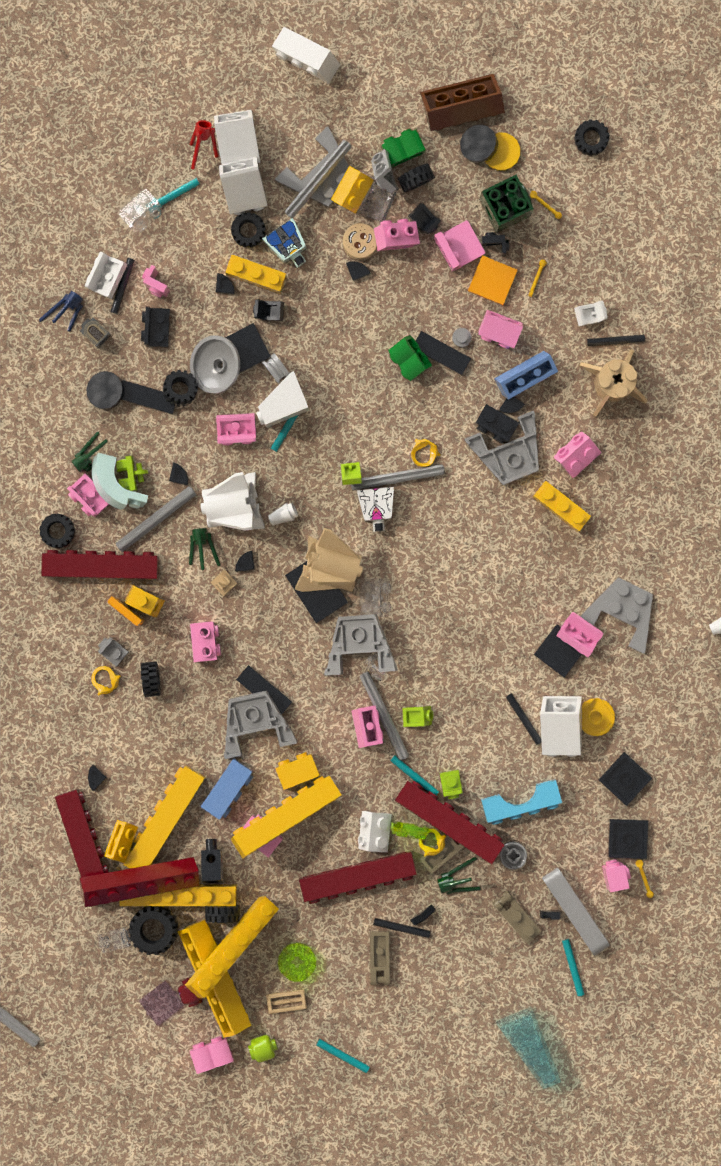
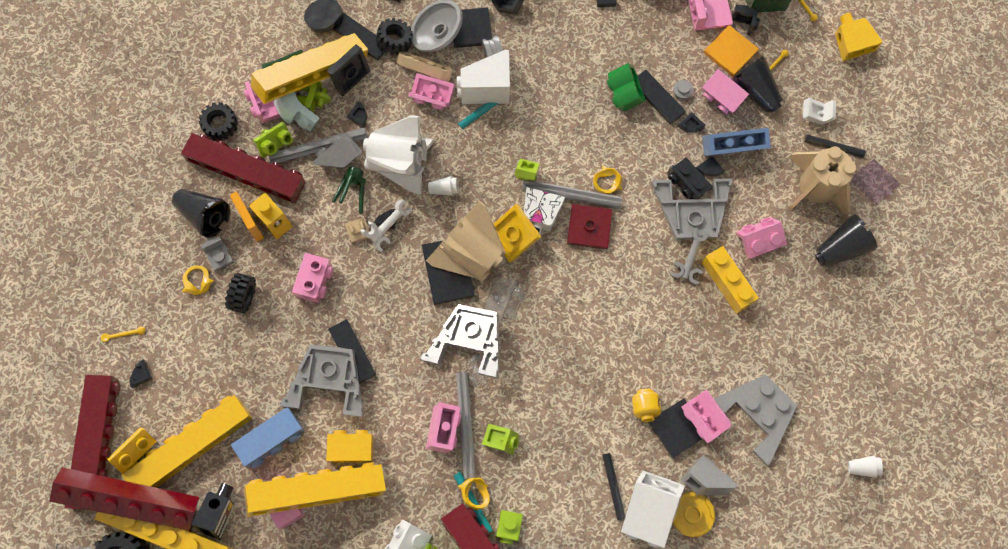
camera: 20 degrees right, 15 degrees down
(50, 758) = (105, 337): none -> yellow hinge
(81, 619) = (202, 211): none -> black cone
(114, 530) = (273, 139): none -> lime hips
(121, 455) = (301, 70): none -> yellow brick
(155, 440) = (349, 70): none -> black tile
(179, 521) = (339, 153): none -> light grey slope
(208, 406) = (424, 66): none -> tan beam
(243, 582) = (376, 233): none -> white bar
(362, 535) = (516, 232): none -> yellow tile
(418, 762) = (482, 487): none -> yellow piece
(424, 501) = (589, 226): none -> dark red plate
(480, 368) = (691, 123): none -> black tile
(522, 511) = (686, 271): none -> light grey bar
(527, 642) = (646, 405): none -> yellow head
(528, 309) = (760, 85): none -> black cone
(597, 685) = (707, 478): none -> light grey slope
(602, 224) = (856, 37): none -> yellow torso
(651, 435) = (846, 243): none -> black cone
(661, 361) = (875, 181): none -> piece

